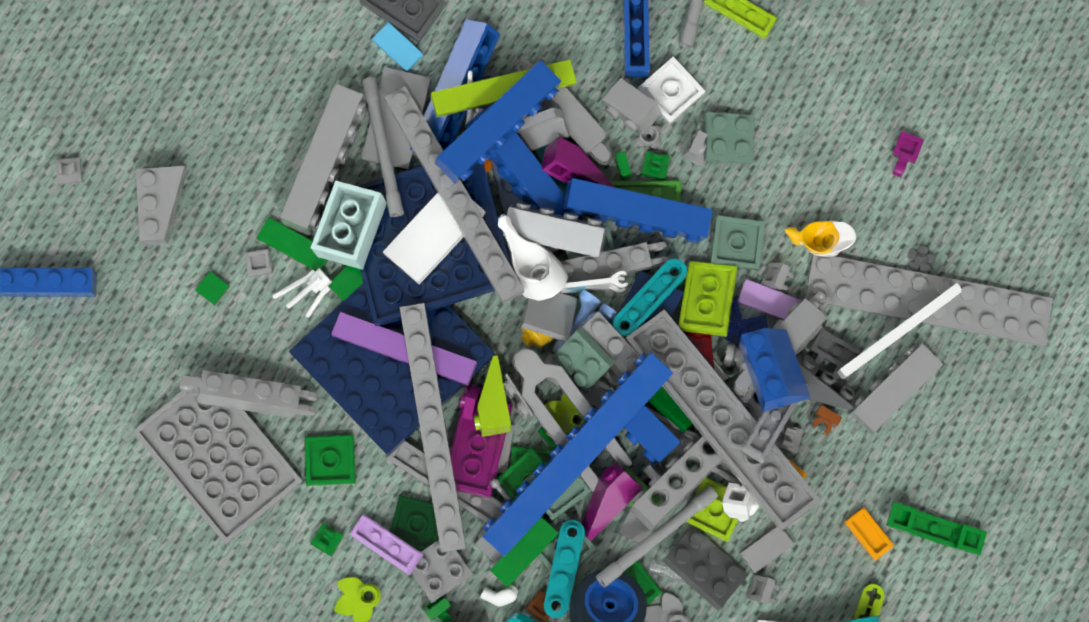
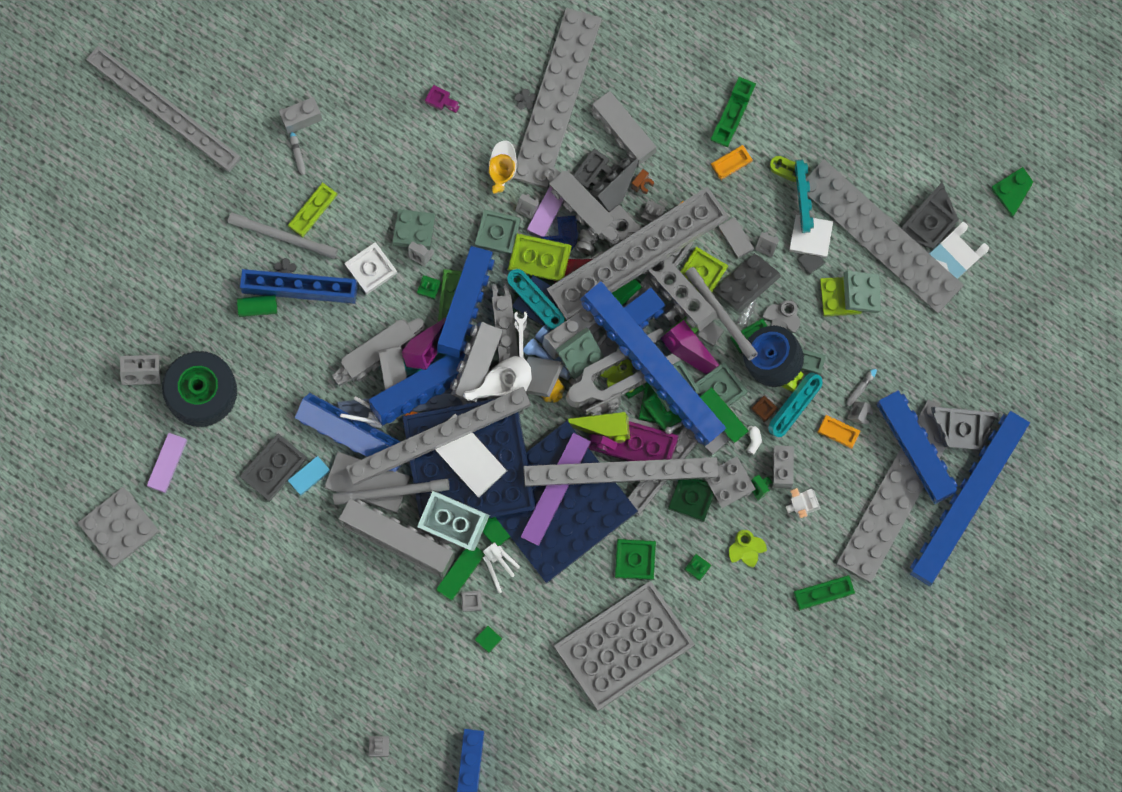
camera: 80 degrees left, 5 degrees down
(158, 201) = (413, 674): light grey wedge -> none
(249, 394) = (578, 613): light grey hinge -> none
(386, 544) = (706, 520): lavender tile -> none
(490, 90) = (357, 391): lime tile -> none
(497, 122) = (387, 394): blue brick -> none
(564, 569) = (739, 387): teal plate -> none
(622, 166) = (427, 311): green tile -> none
(631, 106) = (381, 298): light grey brick -> none
(643, 141) = (405, 285): light grey plate -> none
(739, 502) = (700, 250): white piece -> none
(766, 432) = (640, 214): light grey tile -> none
(773, 368) = (604, 210): blue slope -> none
(899, 331) = (581, 118): white tile -> none

